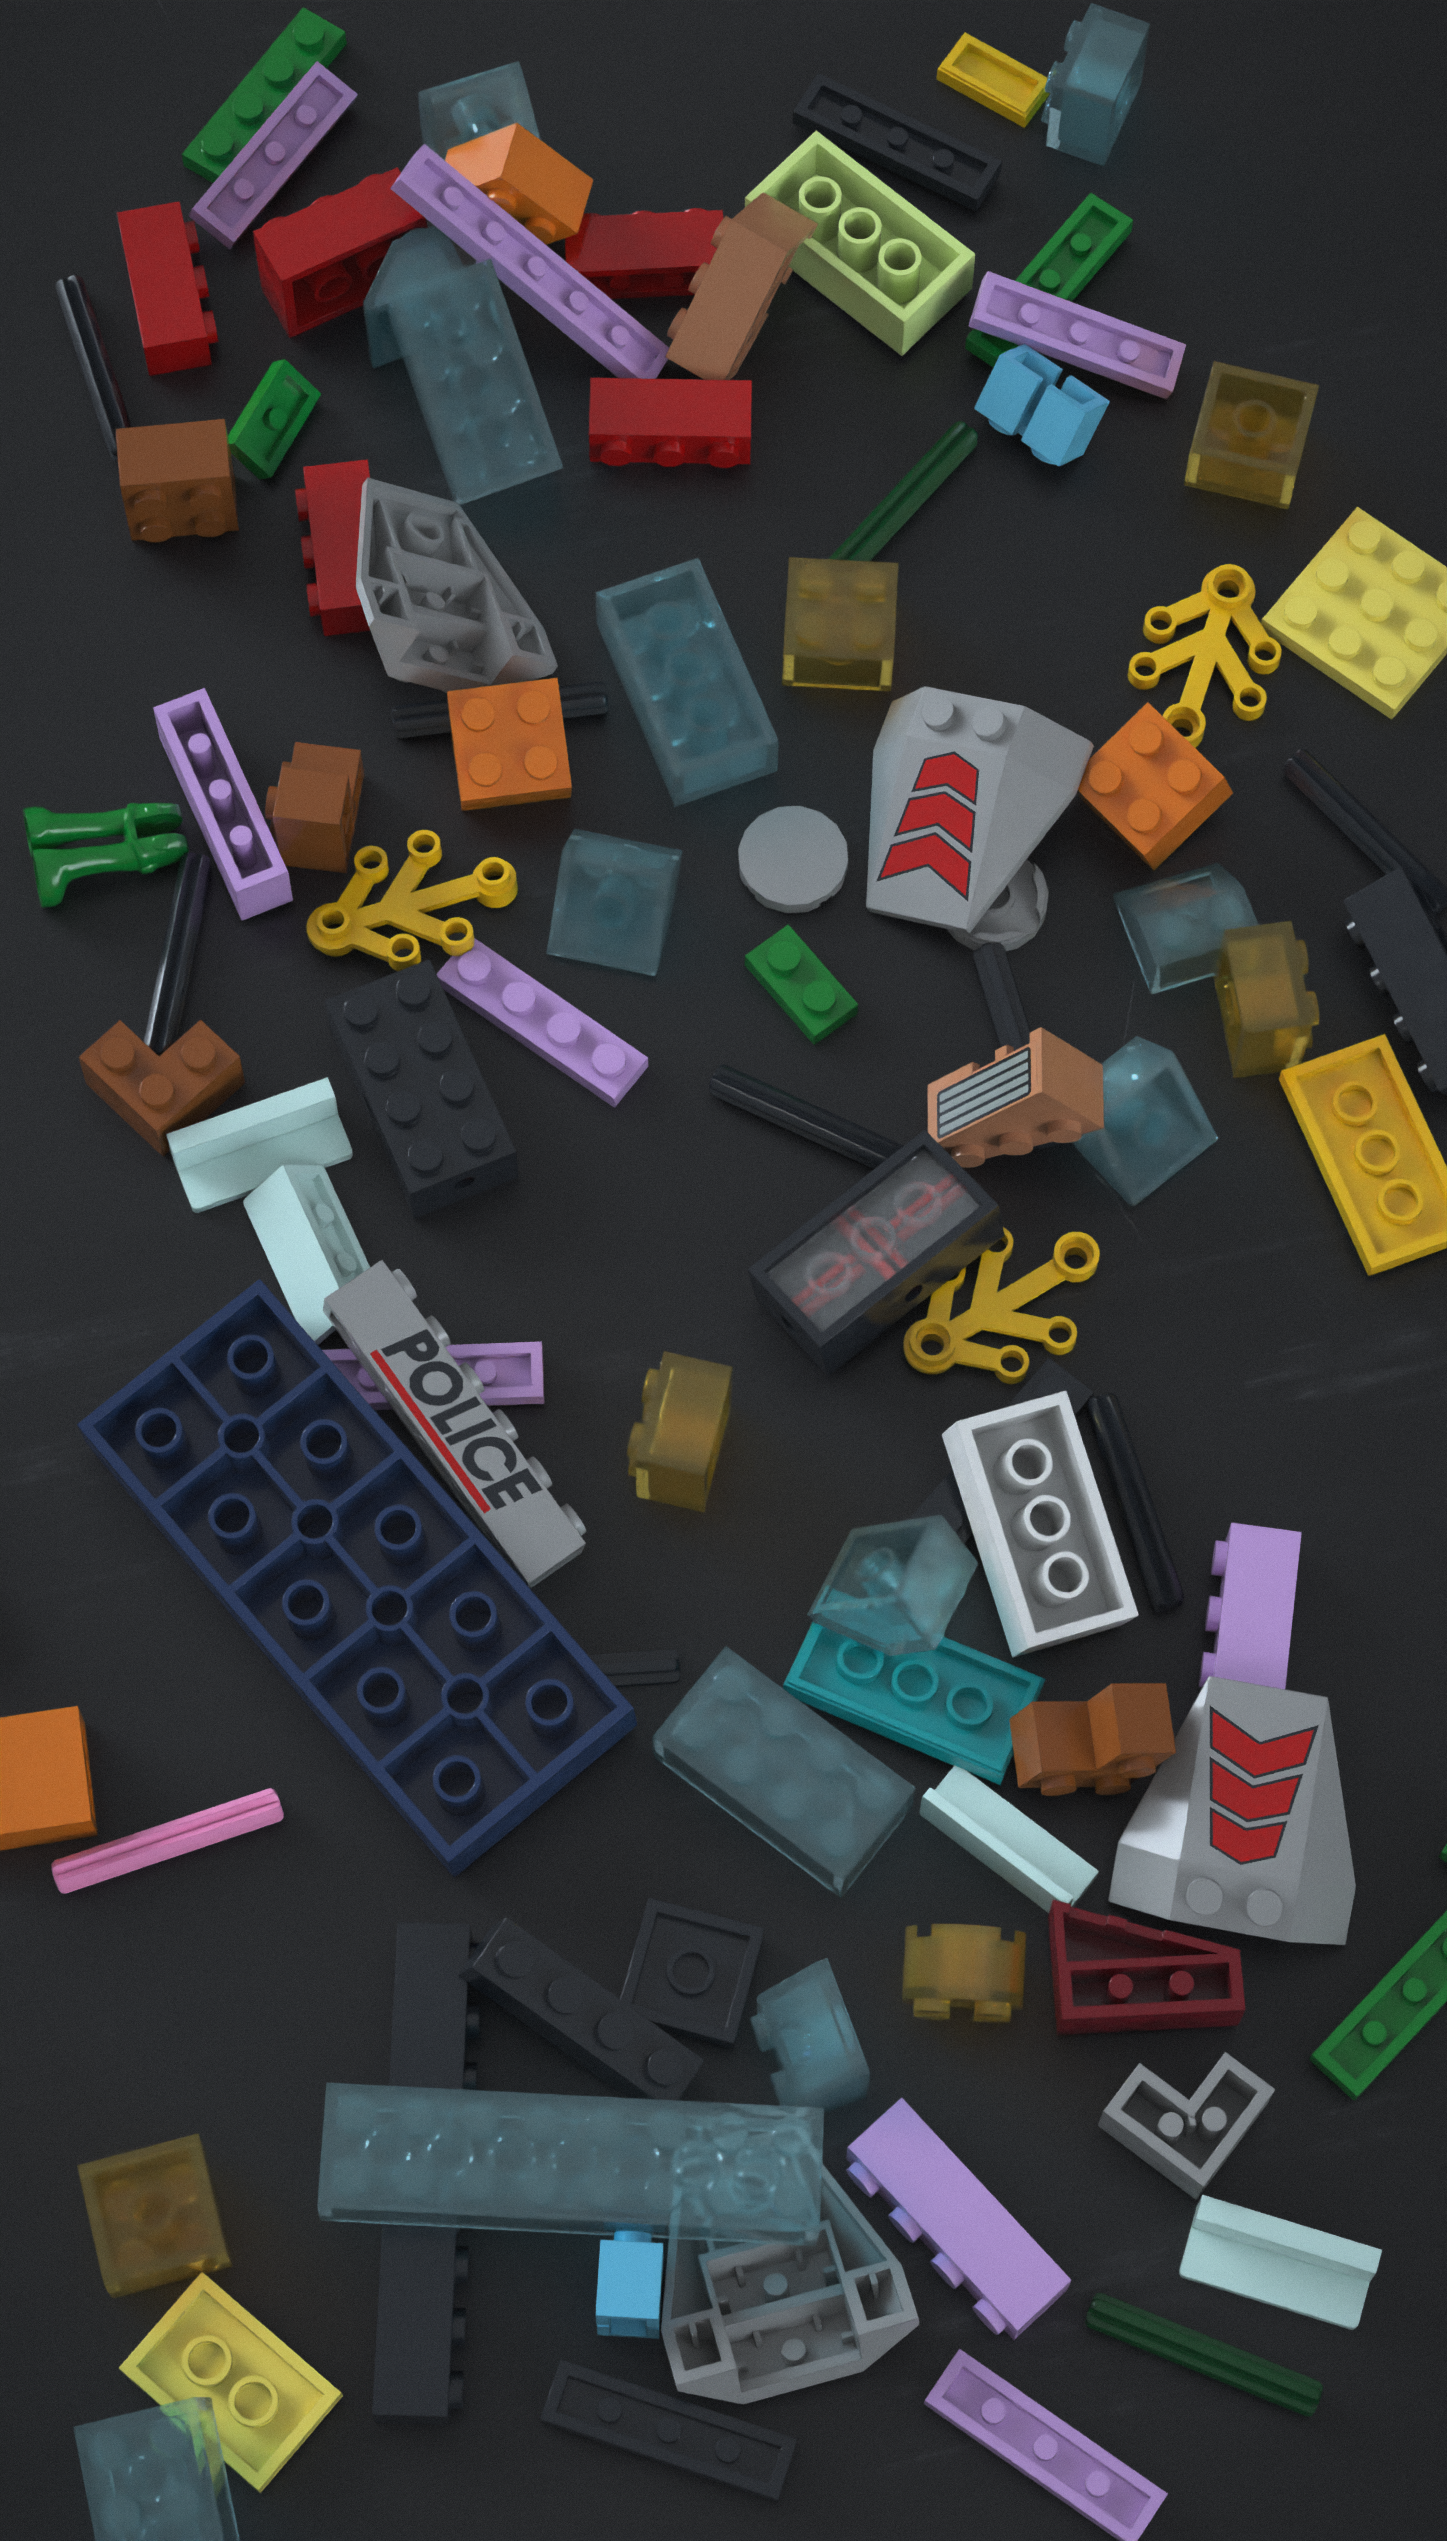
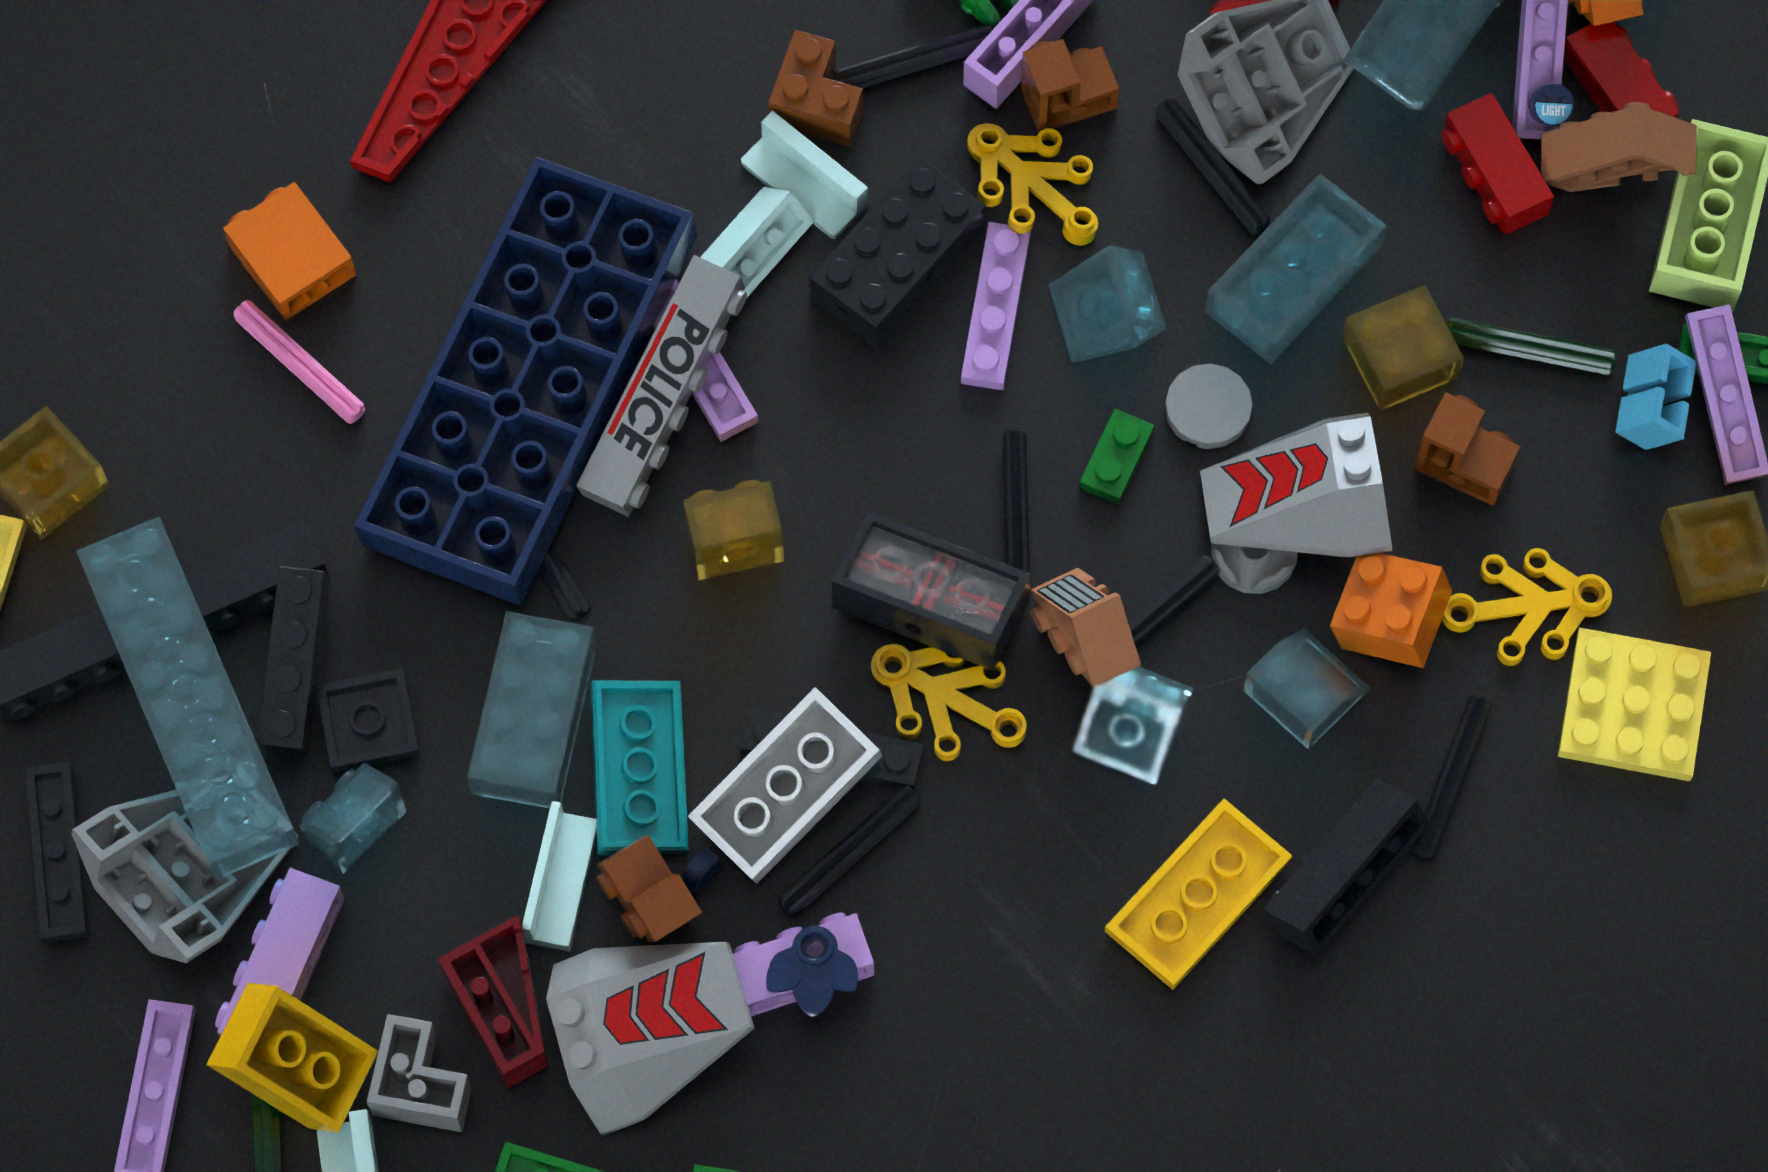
camera: 65 degrees right, 0 degrees up
(509, 744) = (1179, 179): orange brick -> none
(629, 2286) = (130, 770): medium azure piece -> none
(639, 328) = (1551, 105): none -> tile
(896, 1585) = (698, 719): clear light blue slope -> none
(964, 1970) = (446, 886): clear yellow brick -> none
(1000, 621) = (1465, 454): none -> dark orange brick
(1080, 1673) = (700, 870): none -> dark blue tile
(1105, 2249) = (292, 1057): none -> yellow brick
(1264, 998) = (1266, 757): clear yellow brick -> none
(1292, 1605) = (812, 977): none -> dark blue plate

